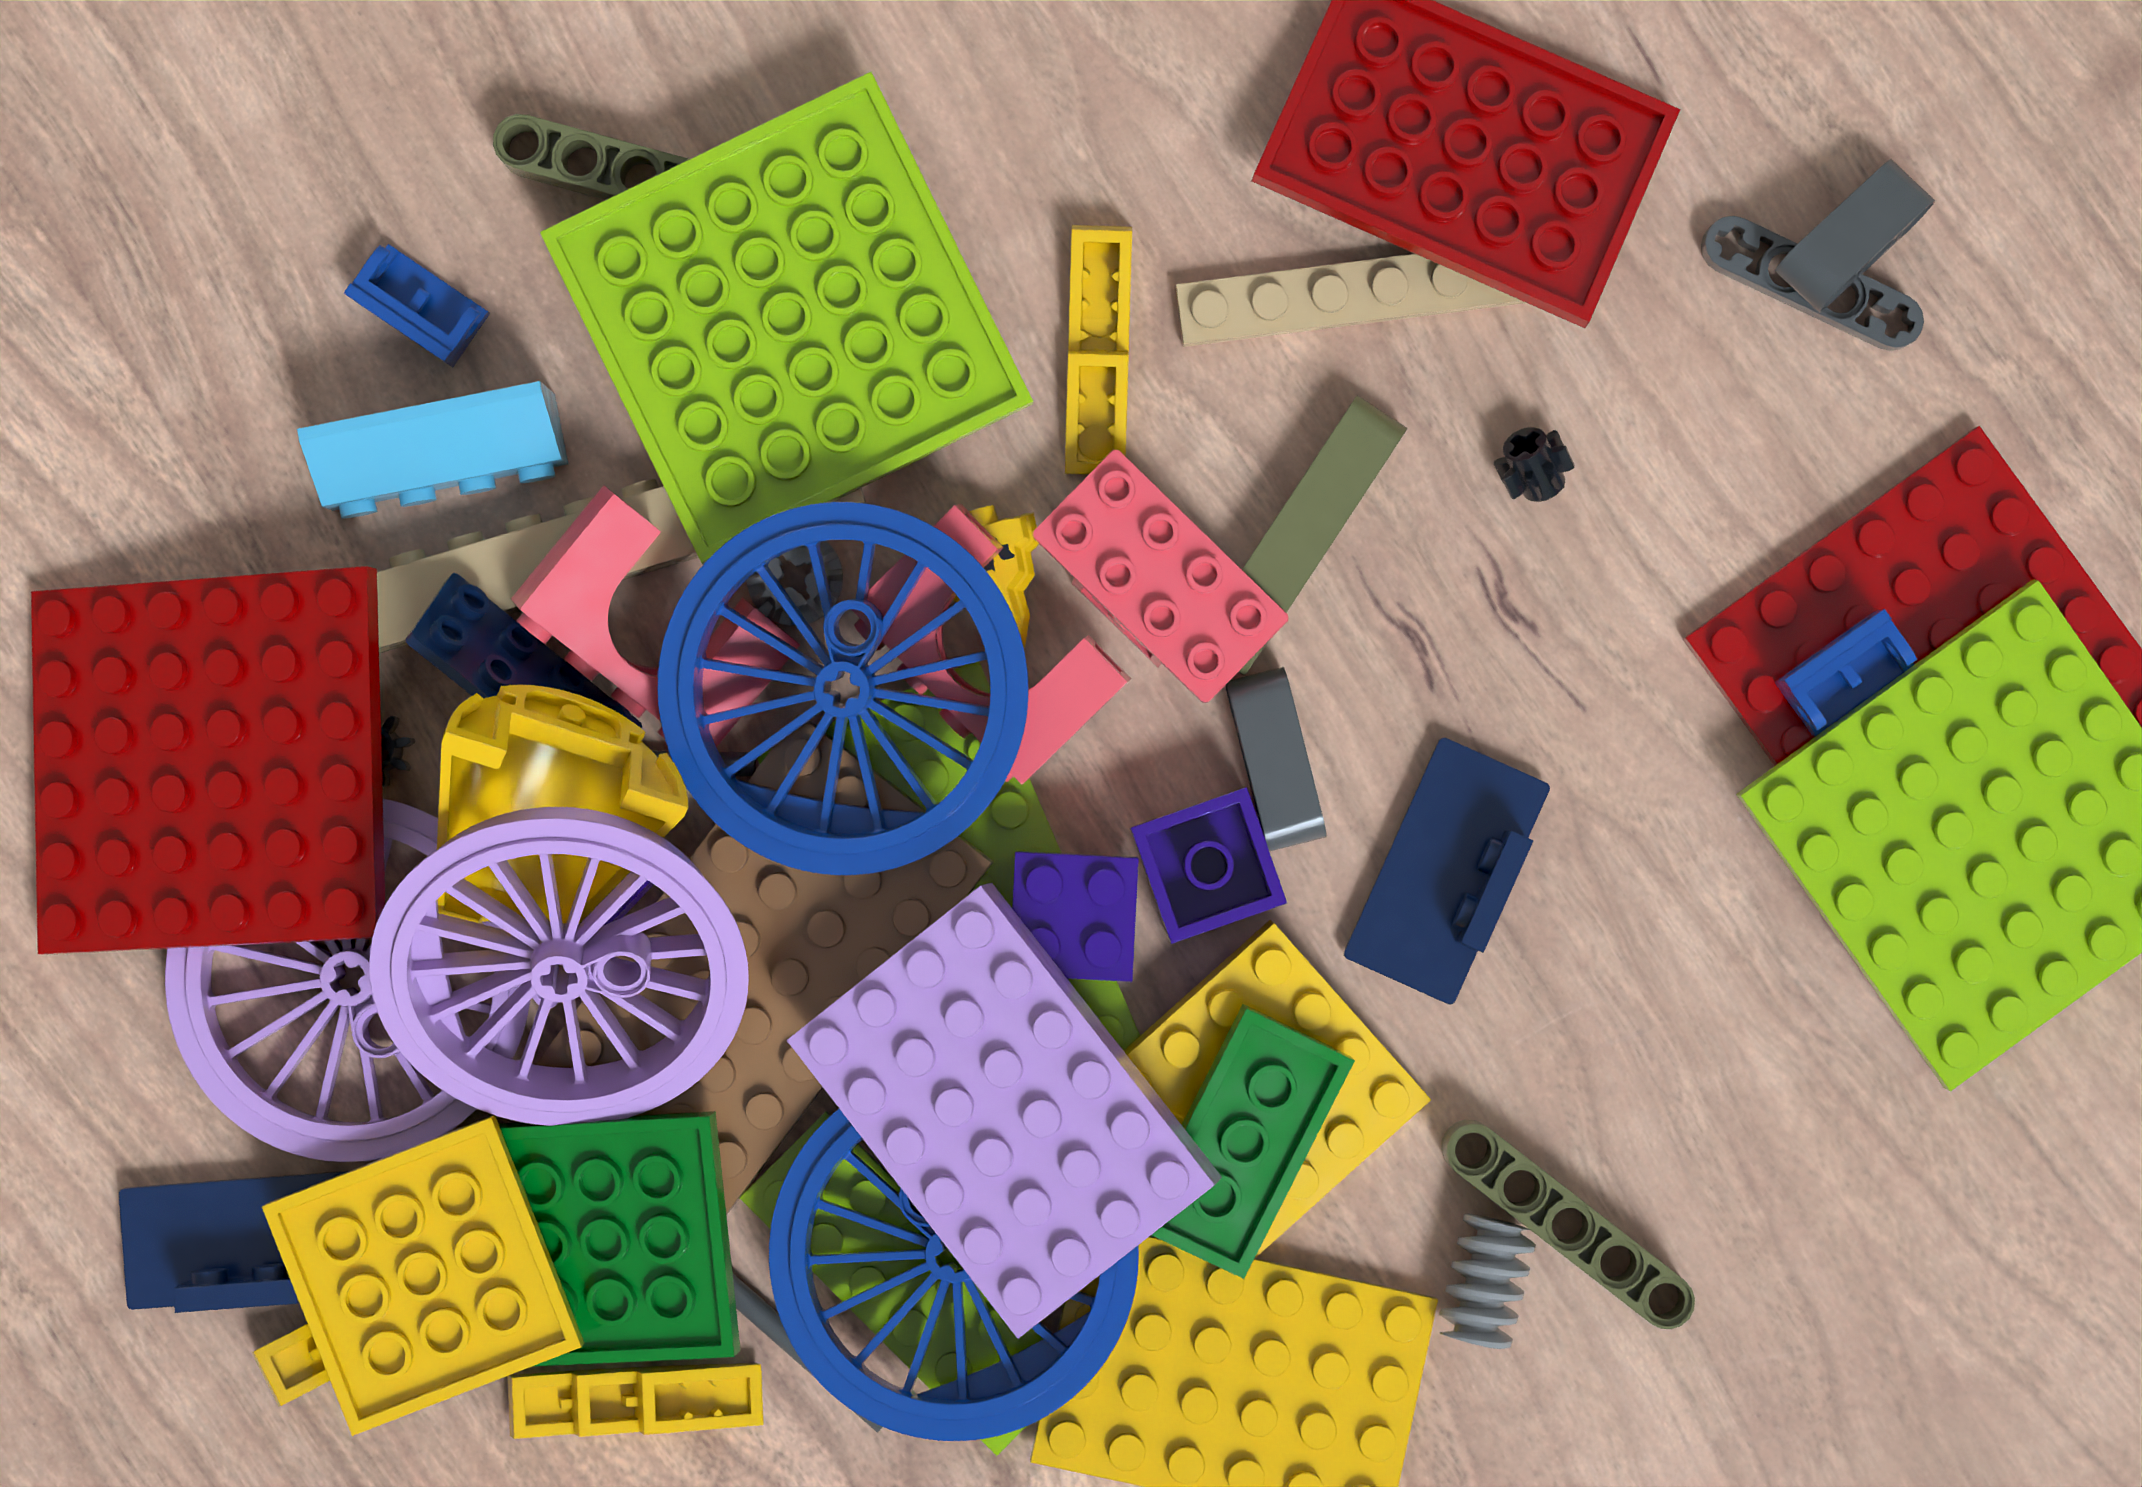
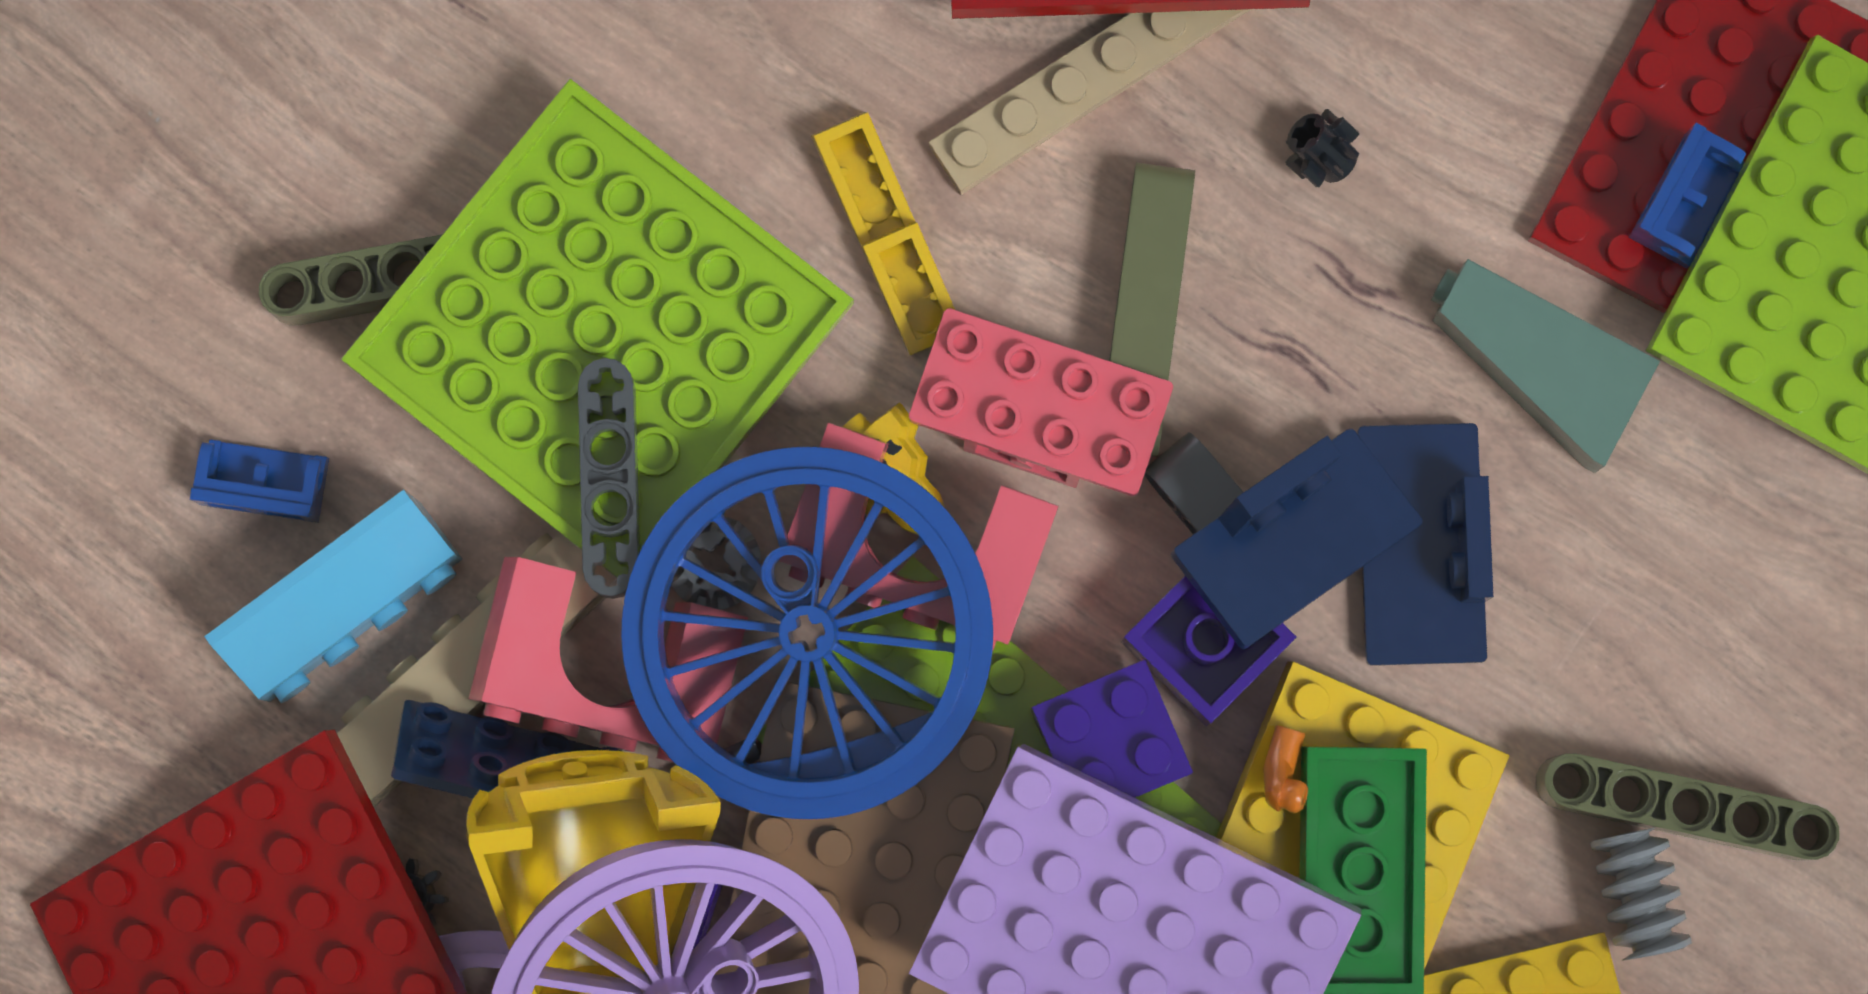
camera: 25 degrees left, 5 degrees down
(722, 456) = (602, 478): none -> dark grey beam
(1210, 1017) = (1279, 768): none -> orange arm
(1331, 812) = (1295, 536): none -> dark blue bracket
(1645, 761) = (1548, 360): none -> sand green slope

